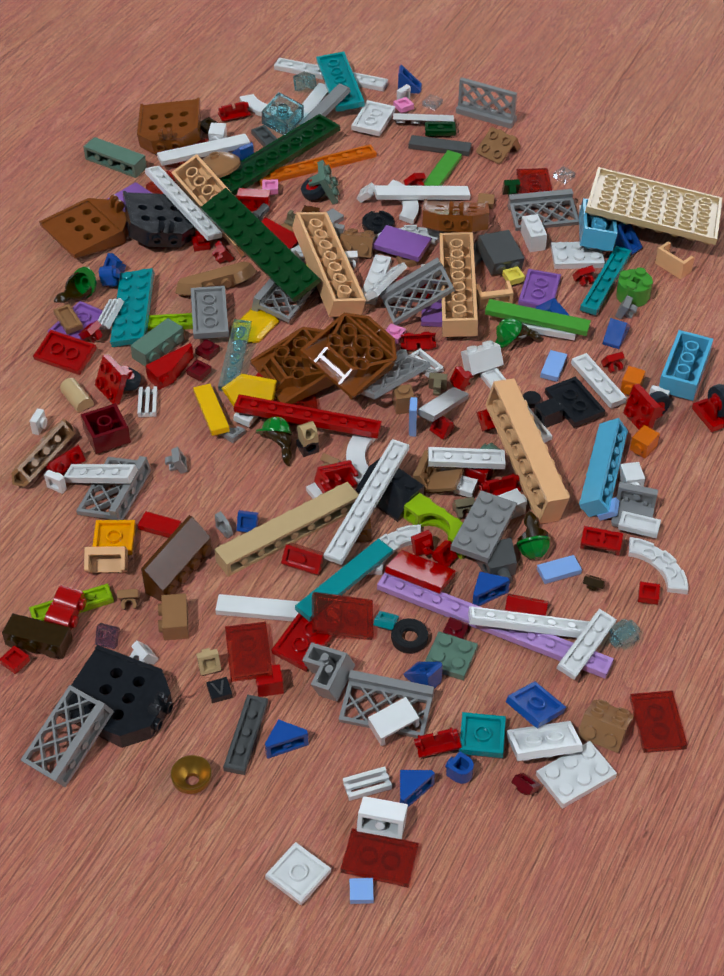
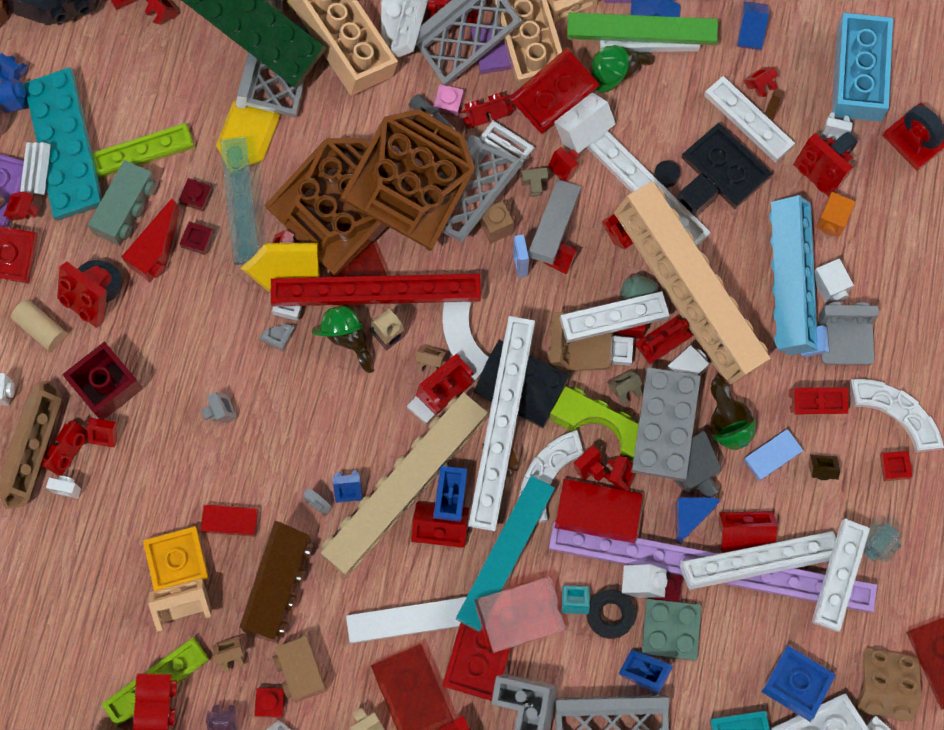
camera: 15 degrees left, 25 degrees up
(93, 455) = (101, 432): none -> red plate
(101, 473) = (123, 464): white plate -> none
(127, 492) = (169, 472): light grey fence -> none
(145, 633) = (269, 703): none -> red plate
(147, 391) = (136, 291): white tile -> none
(209, 312) = (179, 131): light grey plate -> none
(211, 409) = (236, 305): yellow tile -> none
(225, 276) = (167, 64): medium nougat brick -> none
(318, 535) = (450, 493): none -> blue slope
(439, 616) = (644, 581): none -> white brick
(465, 331) = (554, 90): none -> red tile
(553, 365) = (682, 105): light blue tile -> none
(618, 374) = (773, 104): none -> reddish brown tile
(632, 377) = (796, 111): orange brick -> none
(639, 524) = (860, 359): white tile -> none

